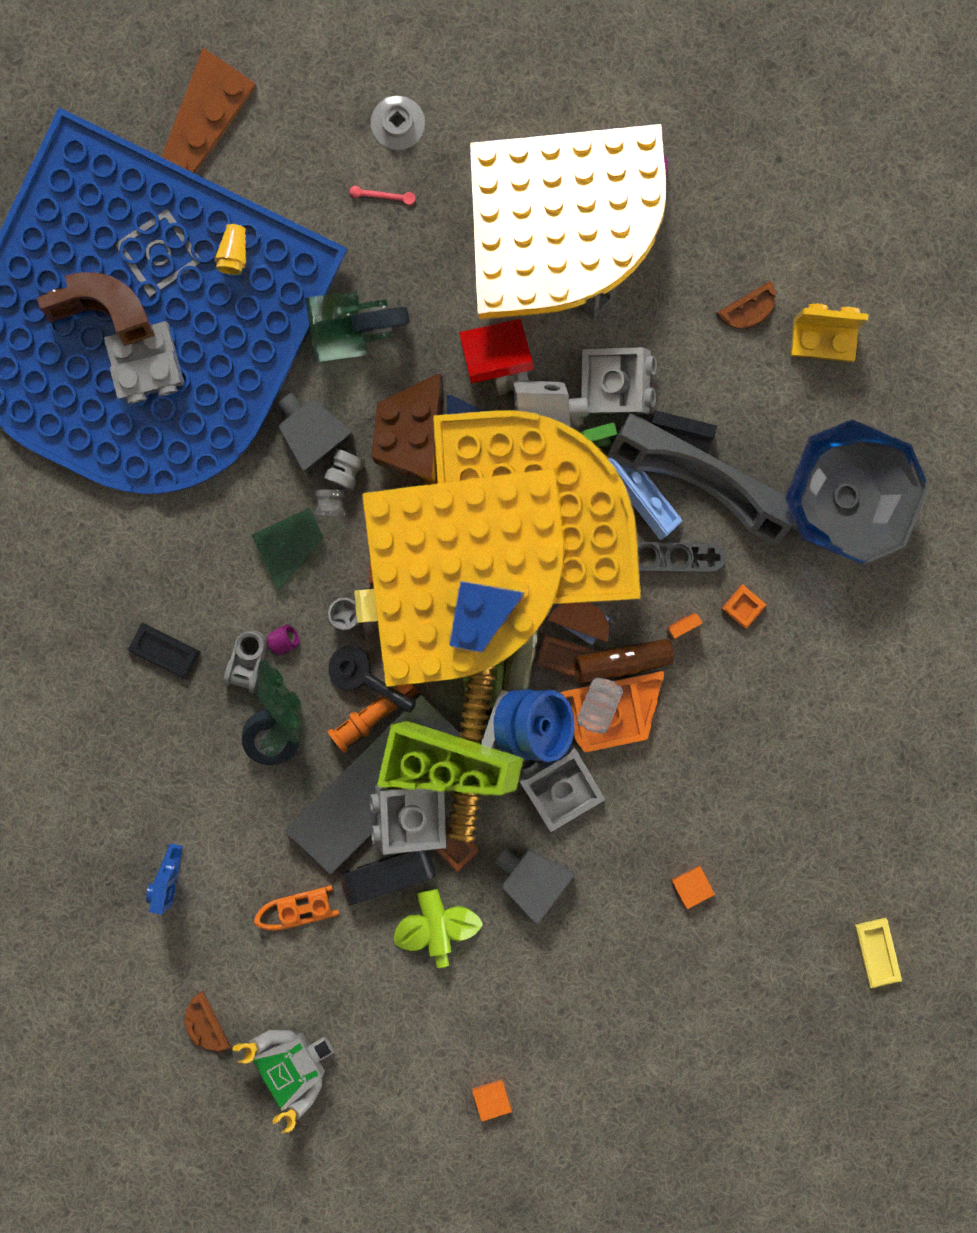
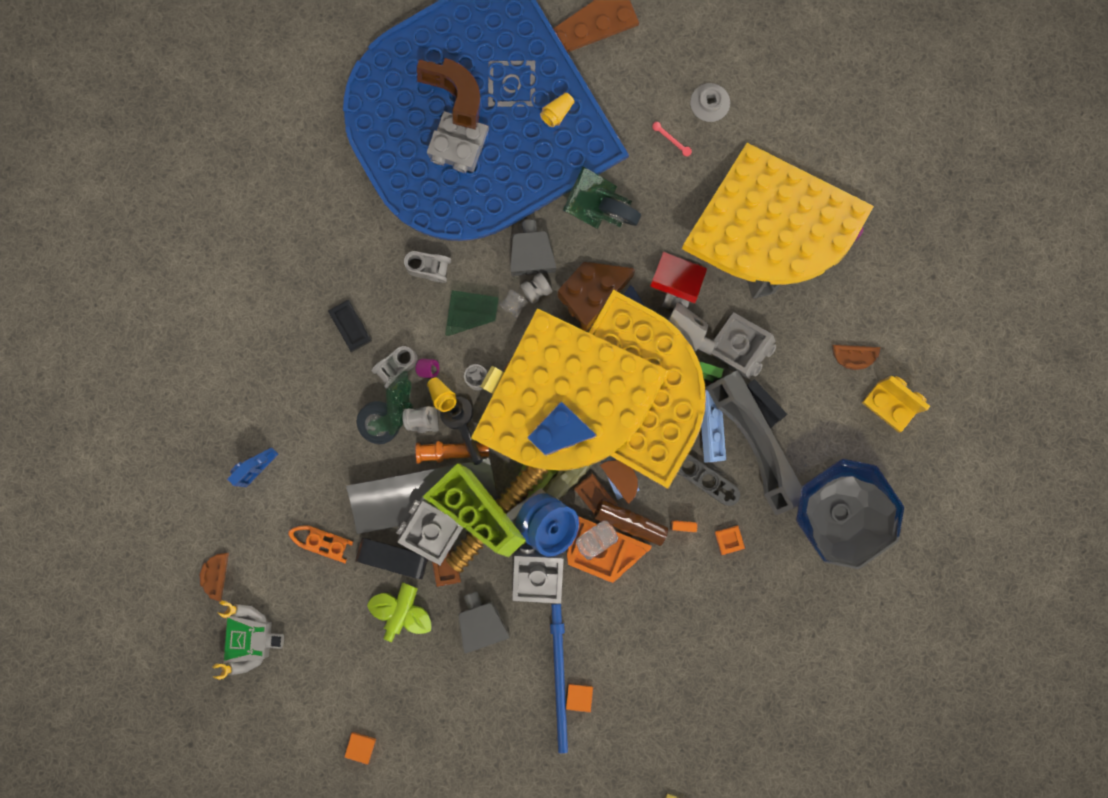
camera: 40 degrees right, 5 degrees down
(207, 524) = (429, 266): none -> light grey piece
(316, 702) = (421, 419): none -> light grey piece
(320, 660) = (441, 395): none -> yellow cone
(620, 830) = (557, 629): none -> blue bar

